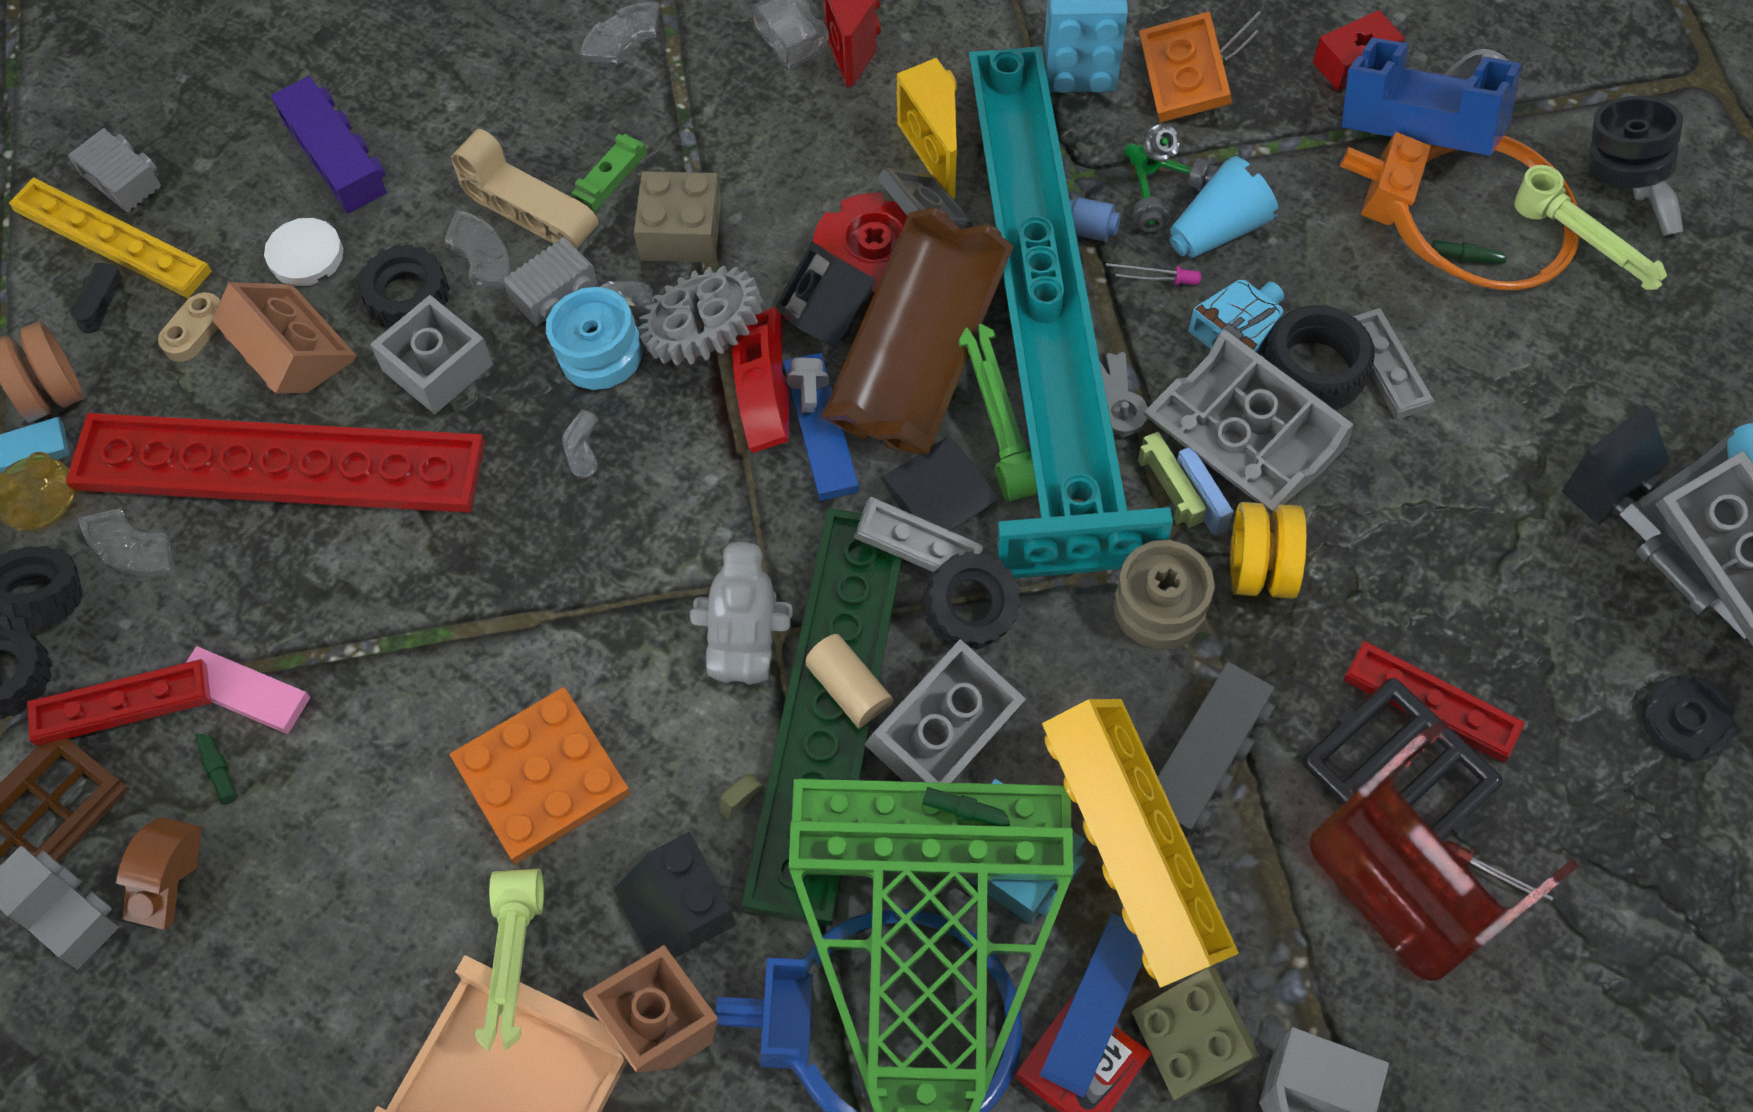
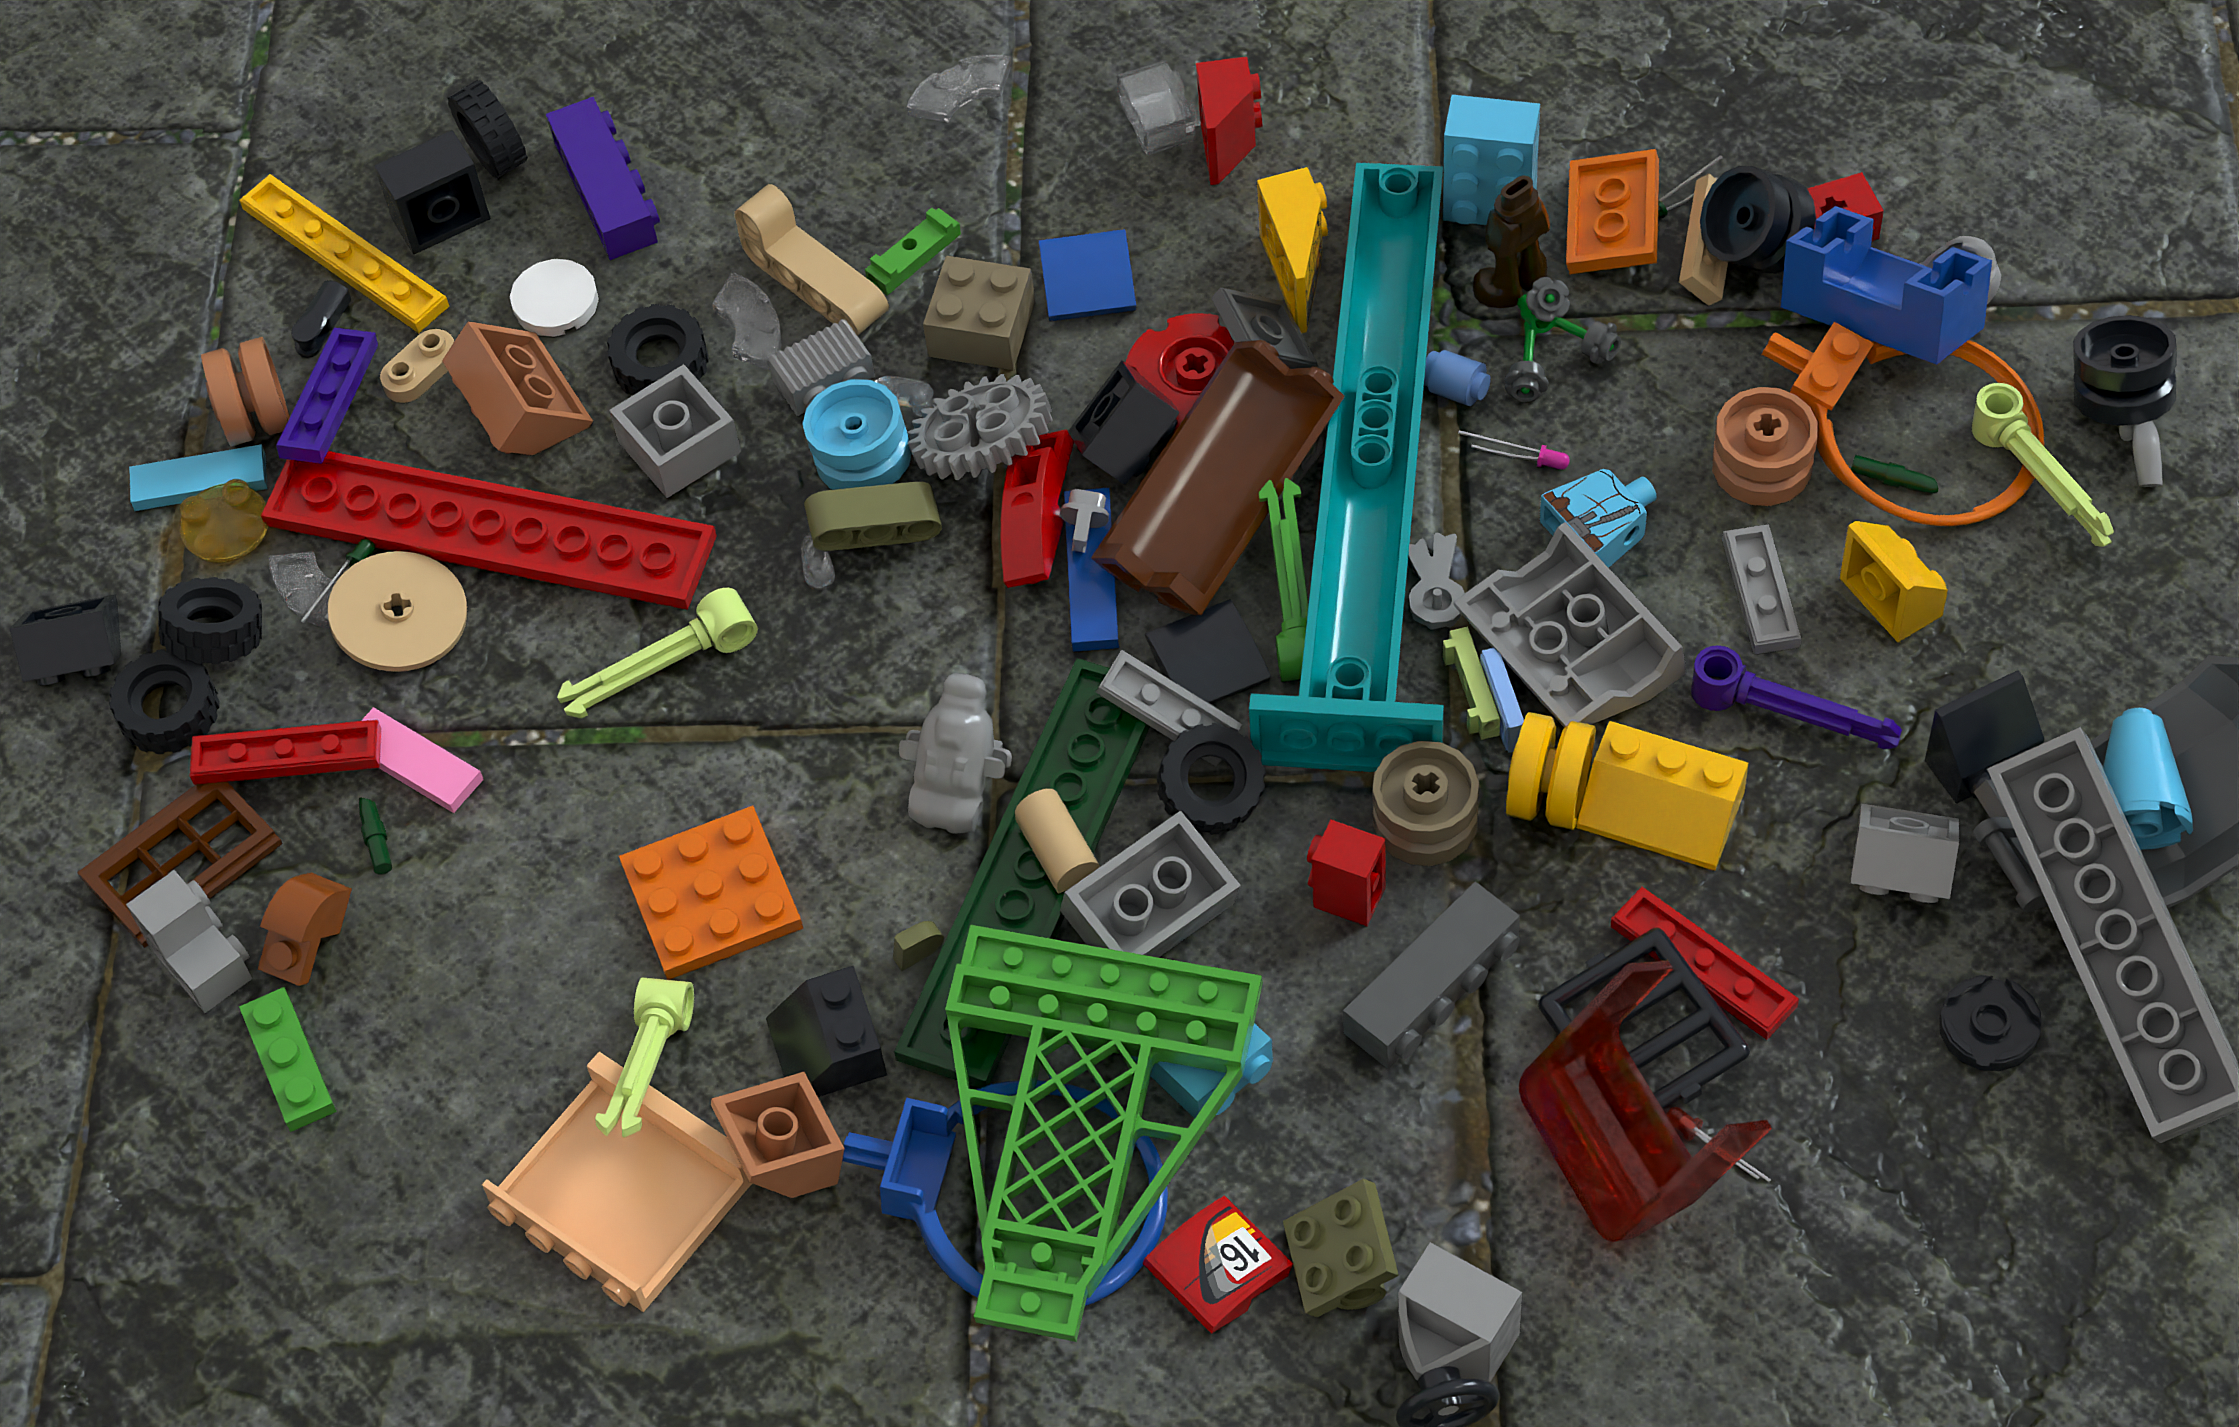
camera: 15 degrees right, 5 degrees down
(111, 366) = (327, 395): none -> dark purple plate
(115, 169) = (351, 174): light grey brick -> none
(159, 510) = (361, 551): none -> dark green piece
(164, 1005) = (287, 1059): none -> bright green plate
(174, 561) = (364, 619): none -> tan piece
(180, 173) = (432, 192): none -> black brick
(220, 113) = (487, 128): none -> black tyre
(504, 519) = (722, 622): none -> yellowish green piece
(621, 406) = (872, 516): none -> olive beam
(762, 174) = (1087, 275): none -> blue slope
(965, 807) = (1141, 978): dark green piece -> none
(1094, 1009) = (1245, 1204): blue tile -> none
(1114, 667) = (1347, 872): none -> red brick
(1119, 97) = (1513, 238): none -> dark brown piece
(1138, 840) = (1322, 1039): yellow brick -> none
(1224, 210) = (1607, 389): medium azure cone -> none
(1266, 80) = (1700, 270): none -> tan plate
(1309, 56) = (1753, 215): none -> black wheel
(1331, 328) = (1686, 534): black tyre -> none
(1362, 242) = (1764, 446): none -> nougat wheel
(1366, 556) = (1662, 795): none -> yellow slope
(1402, 451) = (1747, 688): none -> dark purple piece
(1497, 342) = (1891, 579): none -> yellow slope
(1579, 576) = (1905, 853): none -> light grey slope

